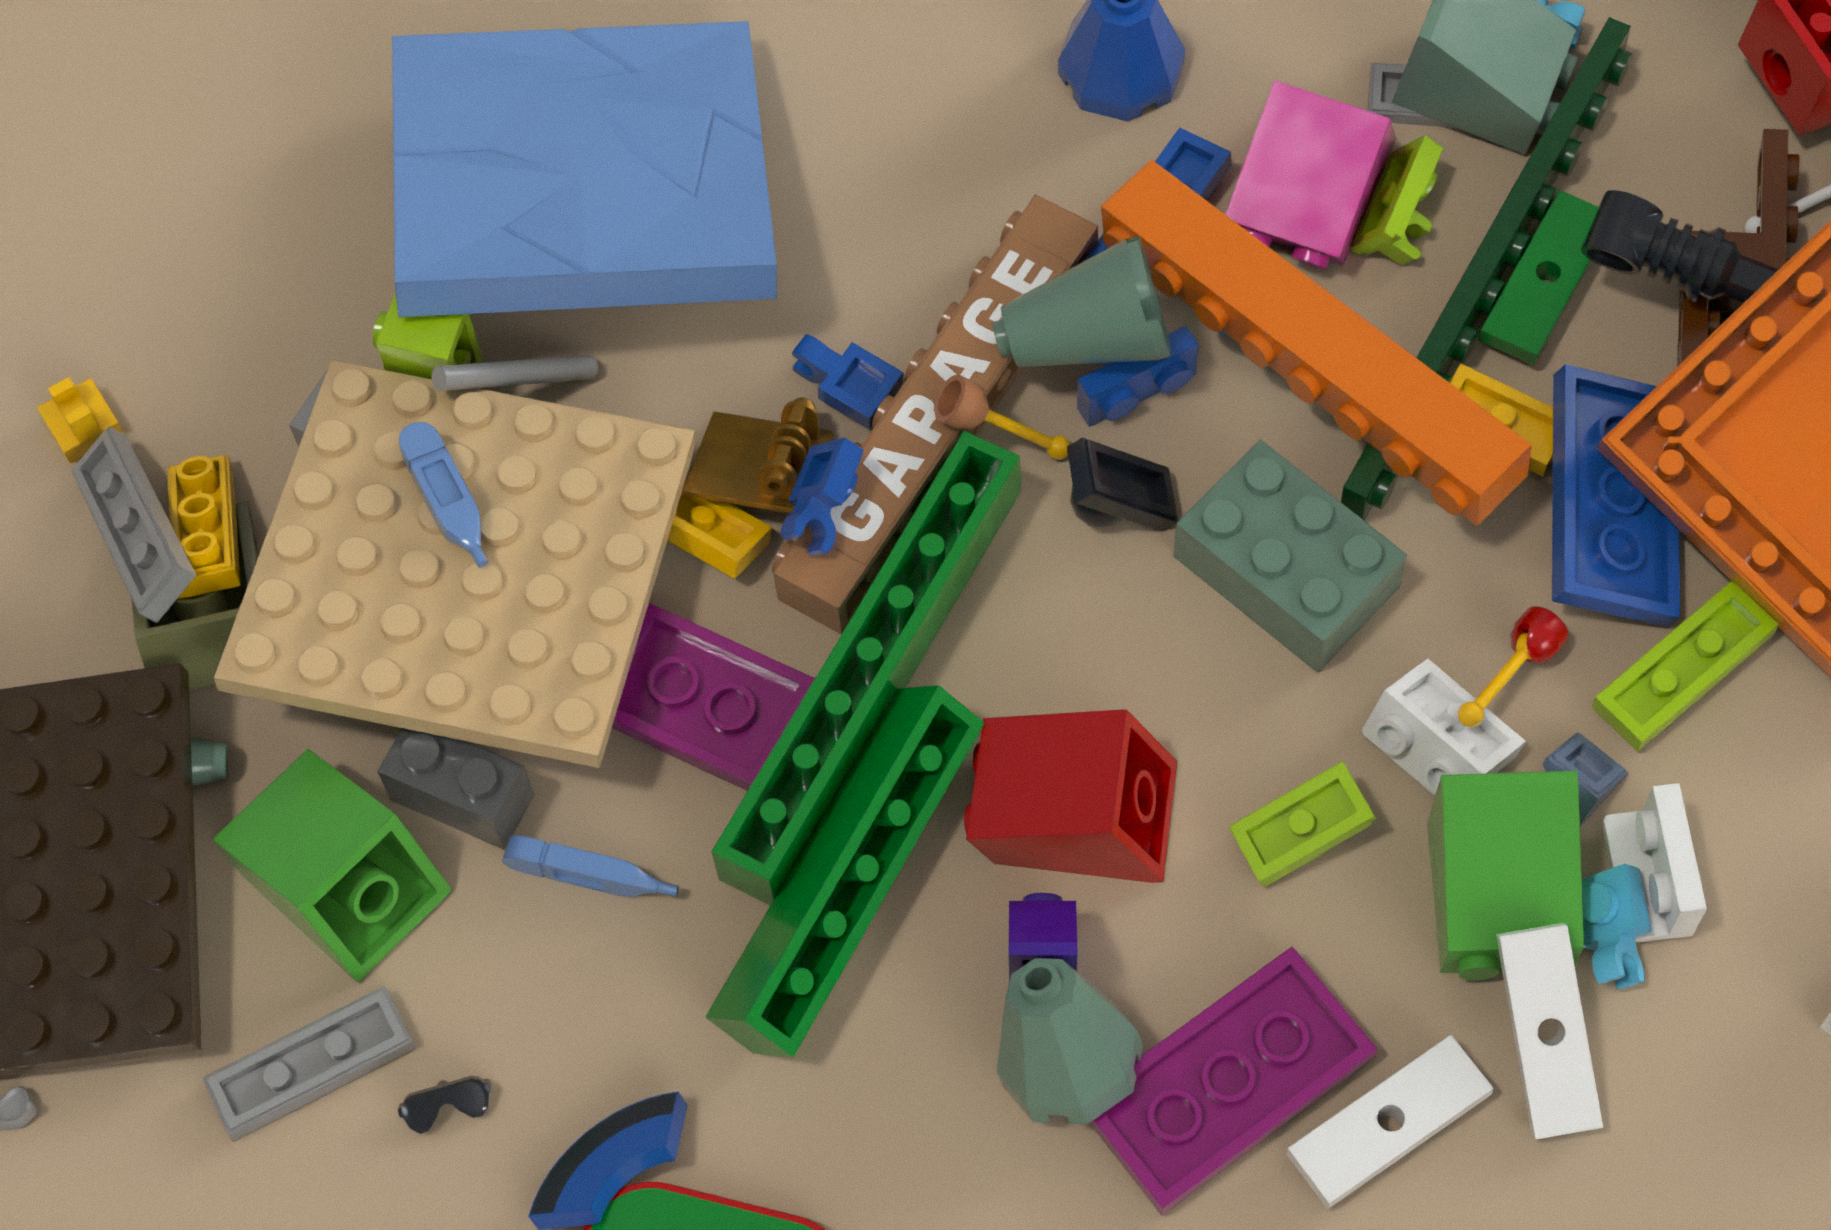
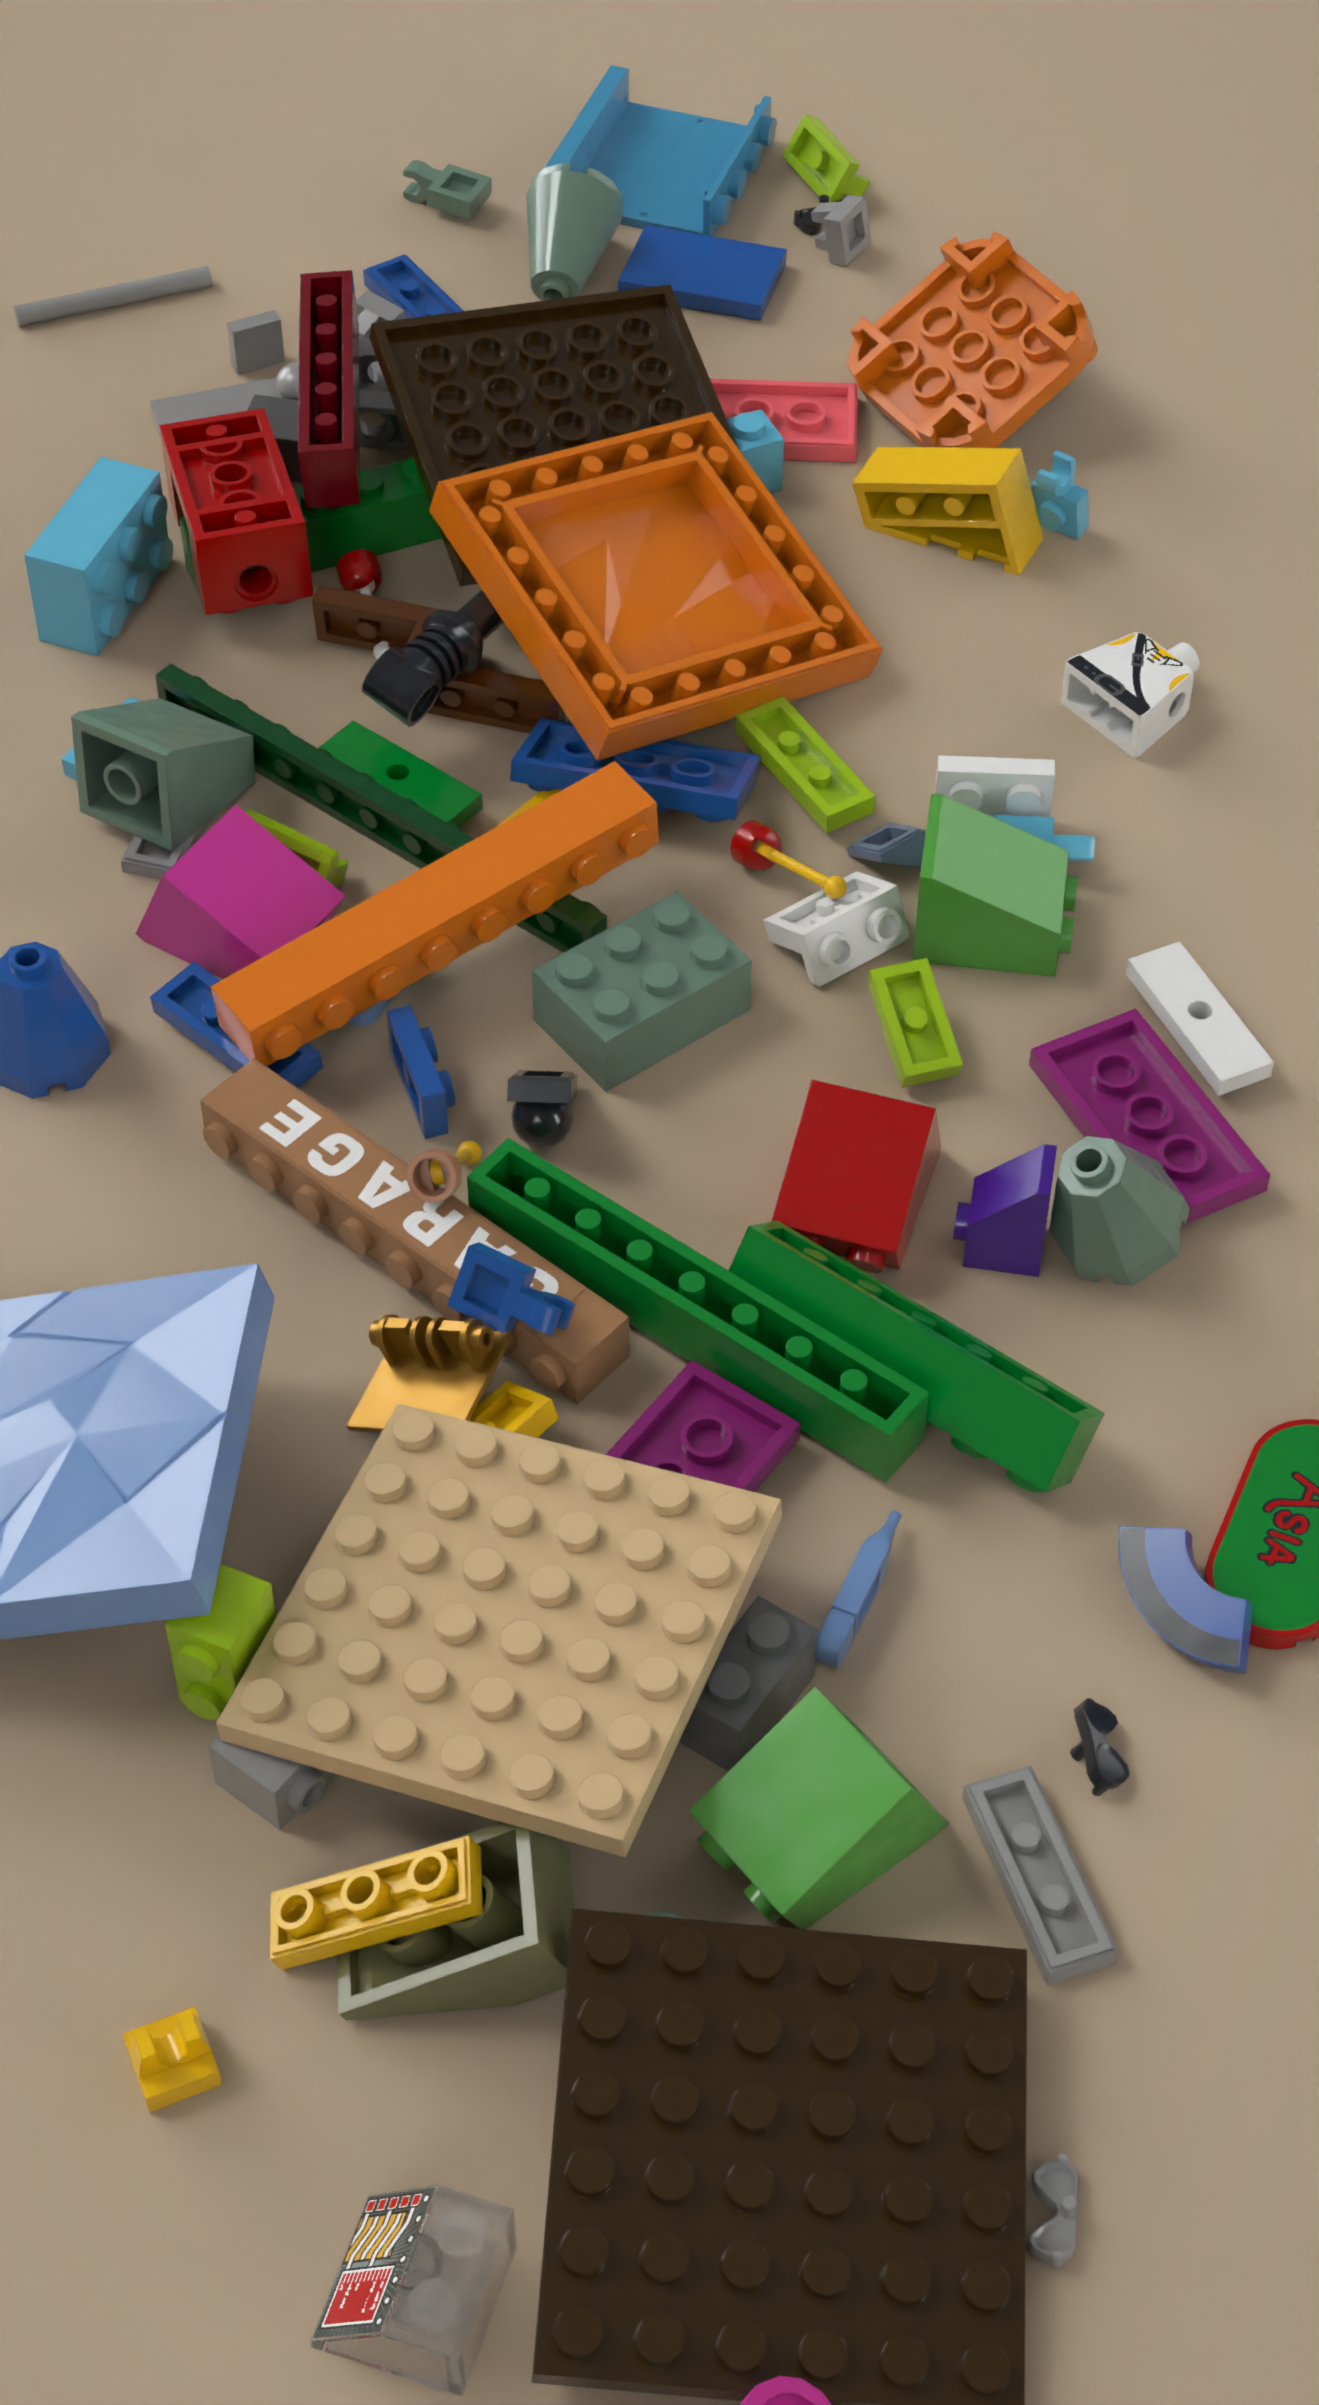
camera: 85 degrees left, 15 degrees down
(133, 524) = (363, 1962): light grey tile -> none
(442, 488) = (431, 1603): medium blue piece -> none
(514, 372) = (274, 1564): light grey bar -> none
(850, 381) = (351, 1293): blue plate -> none
(1088, 314) = (374, 1044): sand green cone -> none
(1558, 1071) = (1138, 887): white tile -> none

